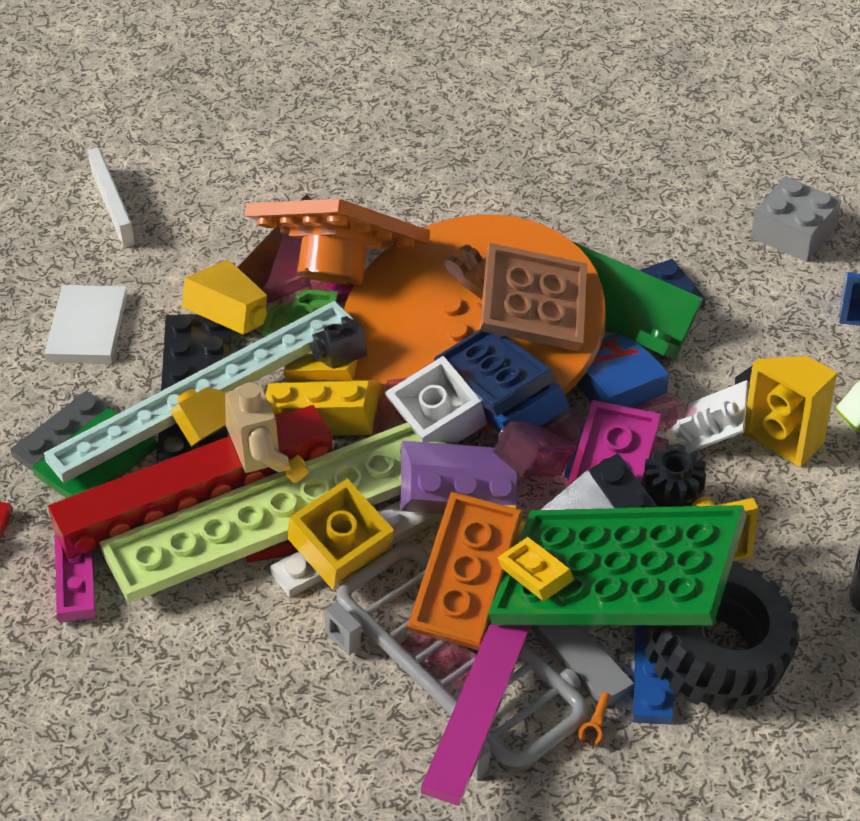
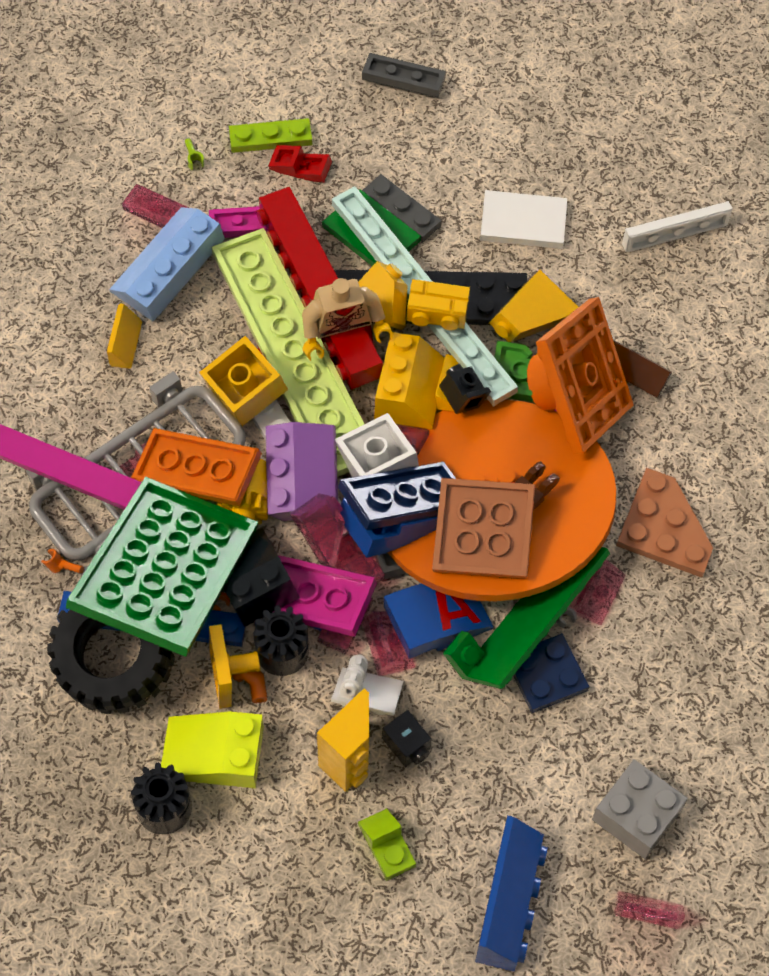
camera: 90 degrees right, 15 degrees up
(53, 667) = (150, 205): none -> clear pink plate
(142, 645) = (168, 262): none -> light blue slope
(234, 355) = (437, 304): none -> yellow brick
(255, 696) = (124, 337): none -> yellow slope
(494, 197) = (665, 526): none -> nougat plate
(536, 569) = (169, 503): yellow plate -> none
(809, 545) = (215, 747): none -> neon yellow slope

